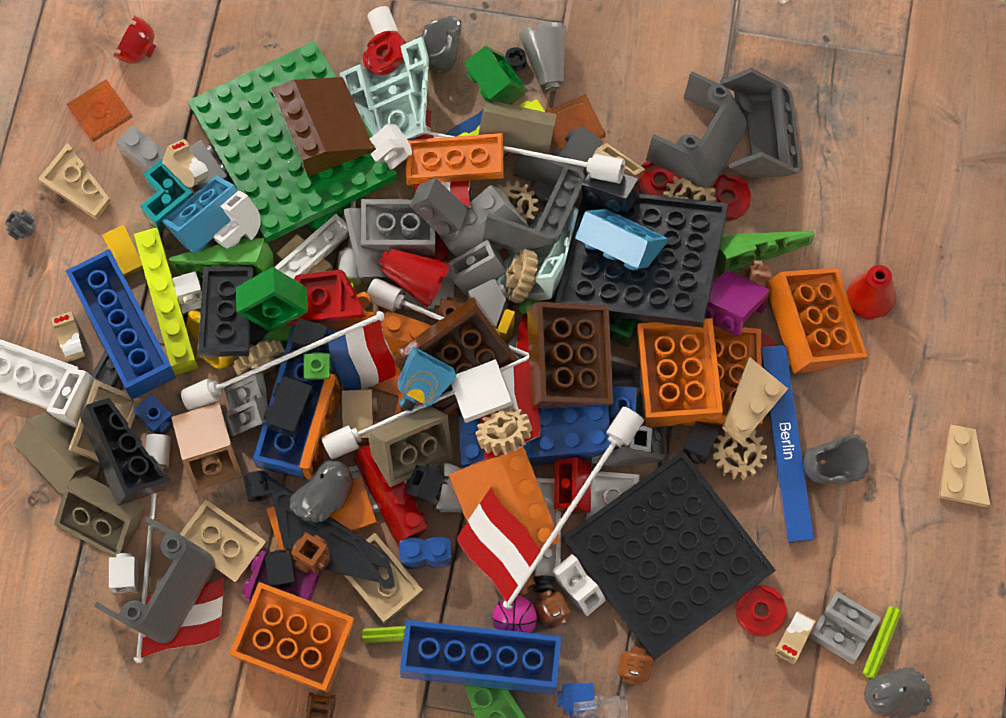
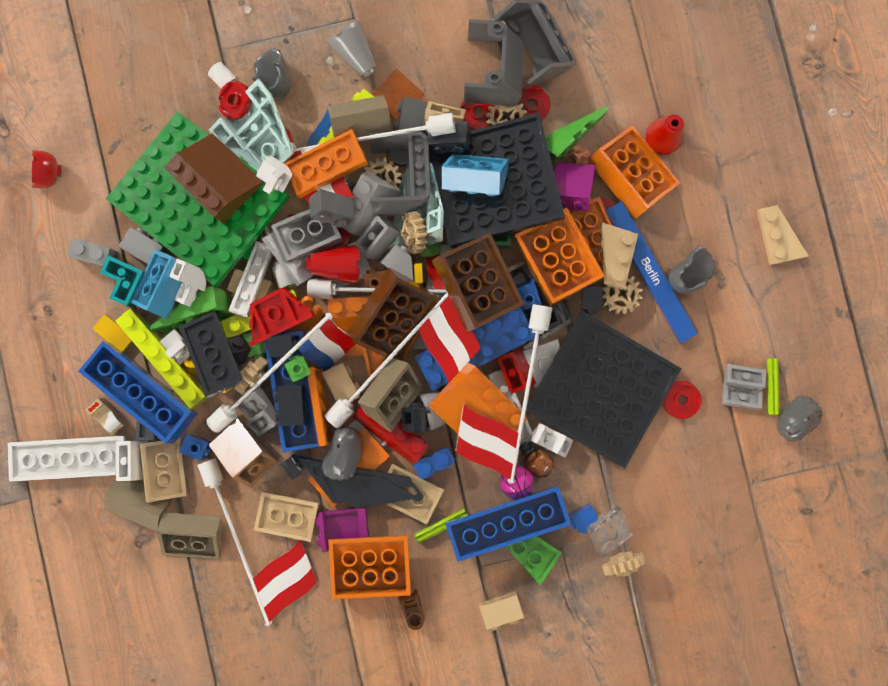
camera: 25 degrees left, 15 degrees up
(20, 224) = (28, 347): dark grey gear -> none
(73, 182) = (51, 297): tan wing -> none
(99, 110) = (43, 233): clear orange tile -> none
(121, 453) = (185, 491): black wedge -> none
(123, 573) = (228, 570): white brick -> none
(176, 592) = (274, 548): dark grey windscreen -> none
(185, 164) = (127, 252): tan leg -> none
(271, 299) = (241, 333): green brick -> none
(281, 570) = (338, 521): black brick -> none
(311, 545) = (351, 509): dark orange brick -> none
(423, 379) = (380, 345): dark azure torso -> none
(481, 391) = (424, 335): white tile -> none
(495, 76) = (325, 84): green brick -> none
(504, 431) = (457, 358): tan gear -> none
(516, 51) = (337, 65): black bush -> none
(635, 666) = (613, 479): dark orange head -> none
(794, 638) = (713, 409): tan leg -> none

